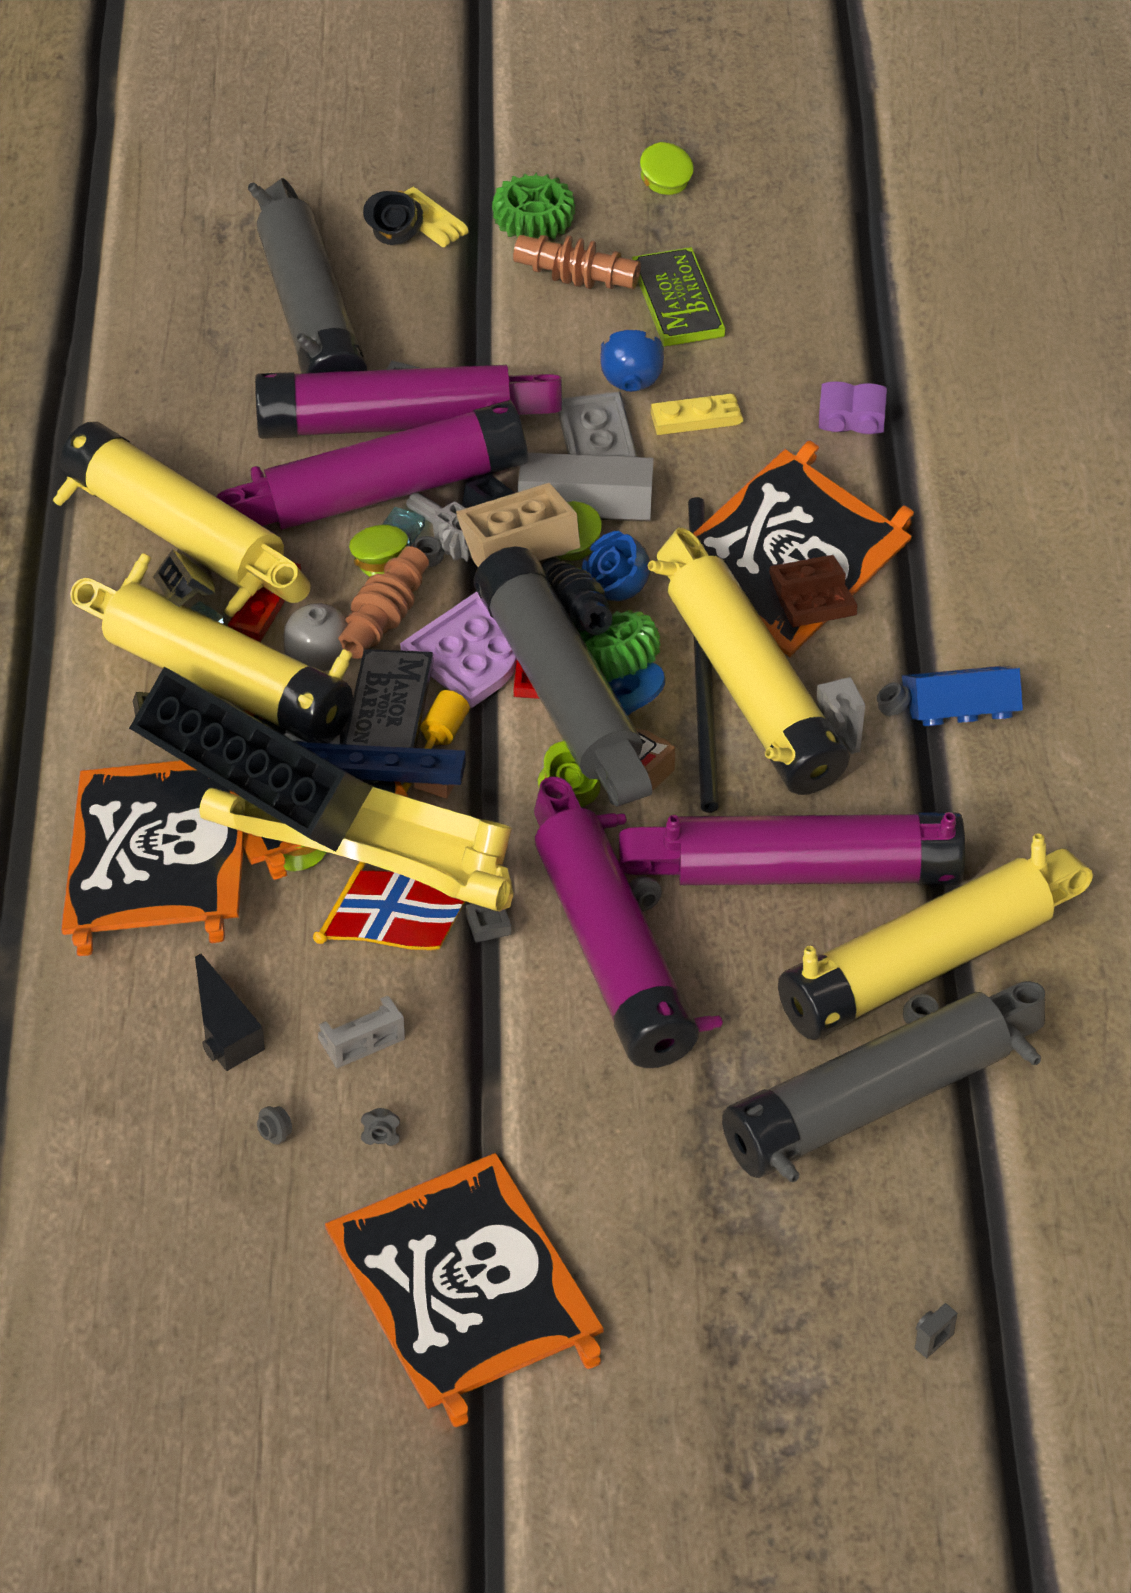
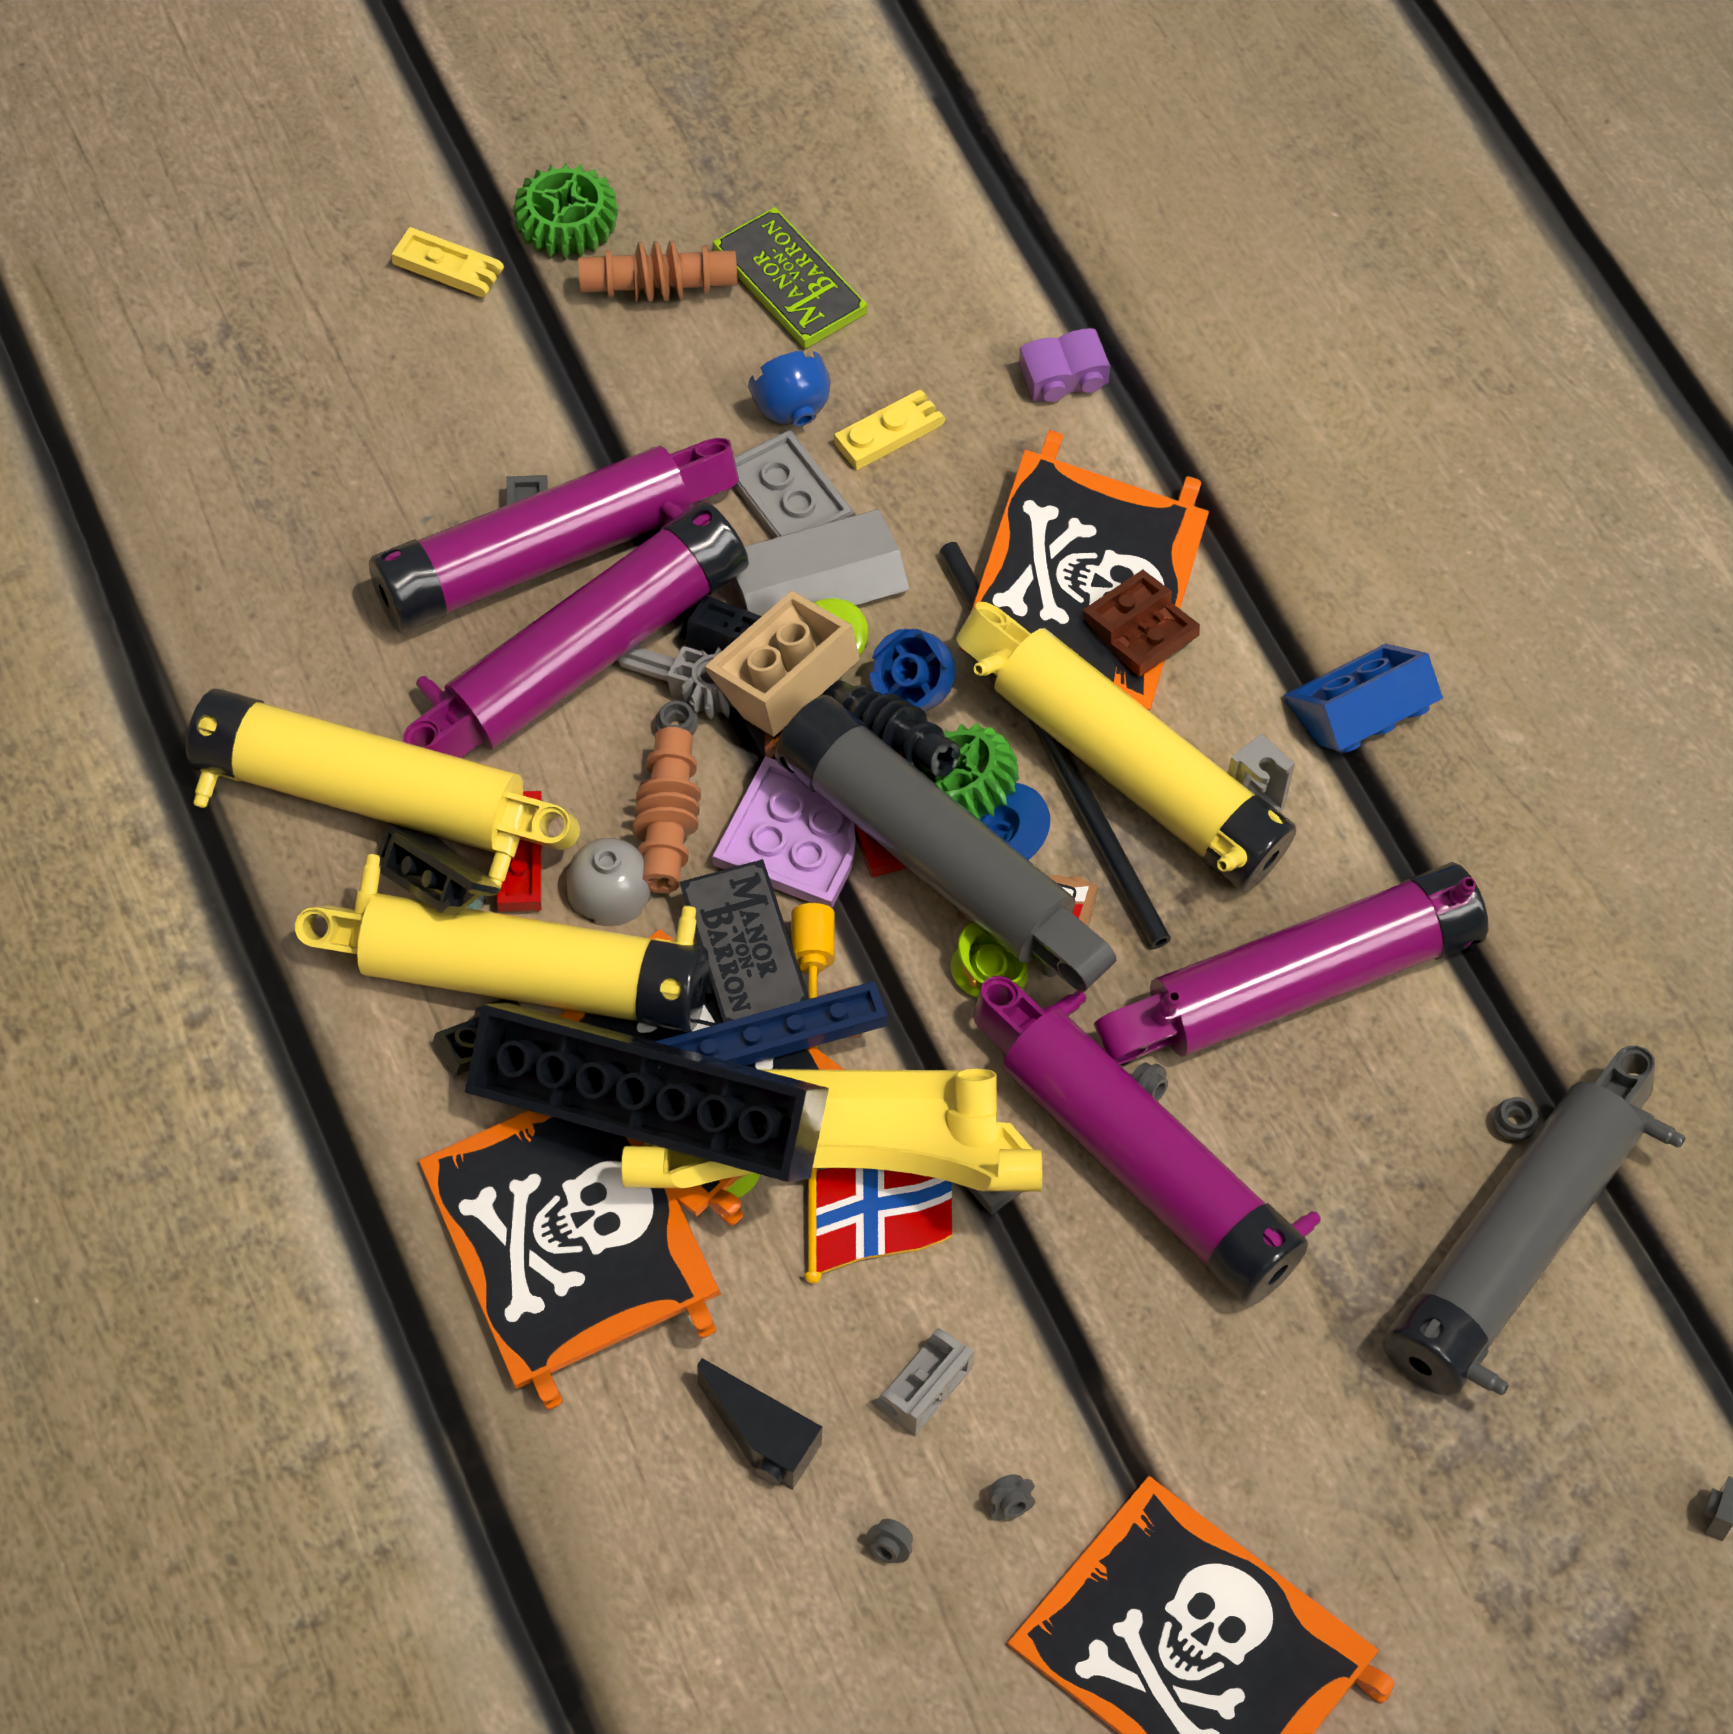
camera: 25 degrees left, 10 degrees up
(305, 282) = (359, 410): dark grey piece -> none
(376, 546) = (621, 737): lime piece -> none
(393, 216) = (409, 277): black piece -> none
(407, 521) = (628, 695): clear light blue plate -> none
(666, 168) = (693, 108): lime piece -> none
(893, 699) = (1287, 727): dark grey plate -> none
(928, 941) = (1489, 1036): light yellow piece -> none

